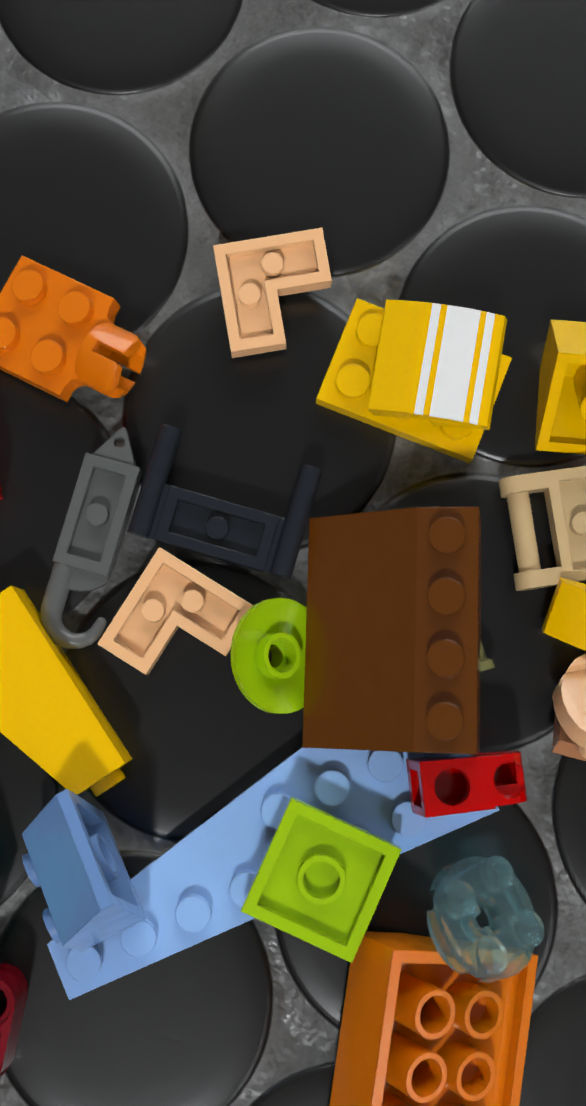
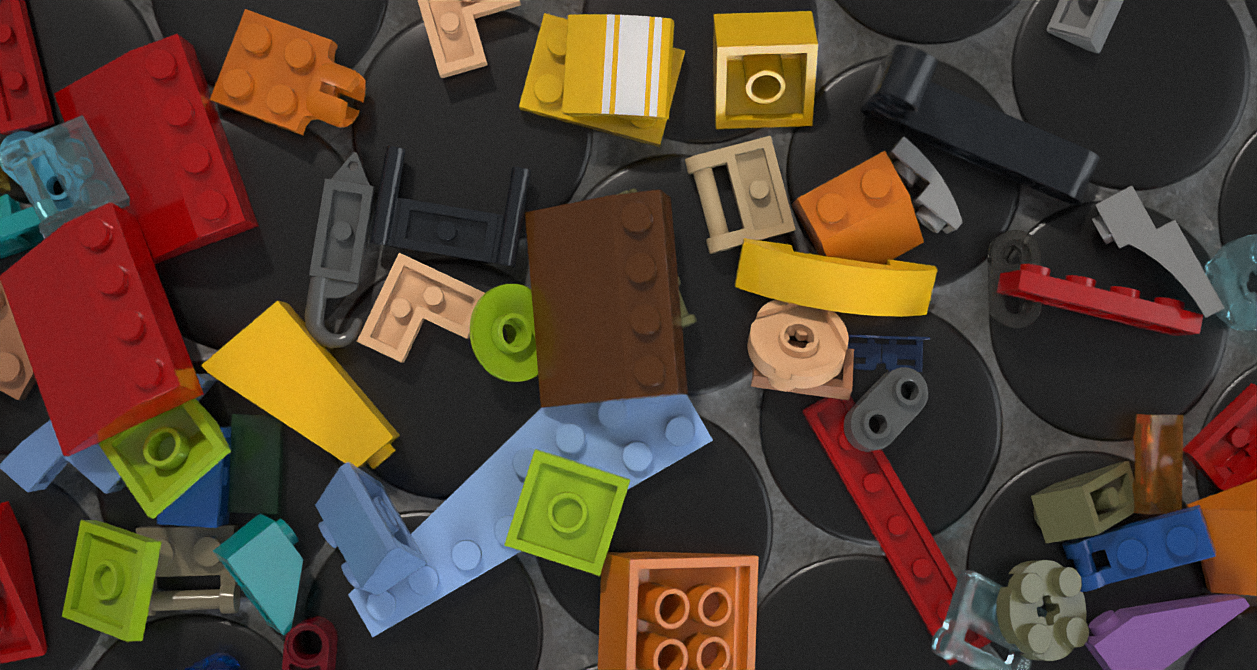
camera: 10 degrees left, 5 degrees up
(465, 783) = (678, 419): red leg -> none
(513, 925) = (724, 513): clear light blue plate -> none

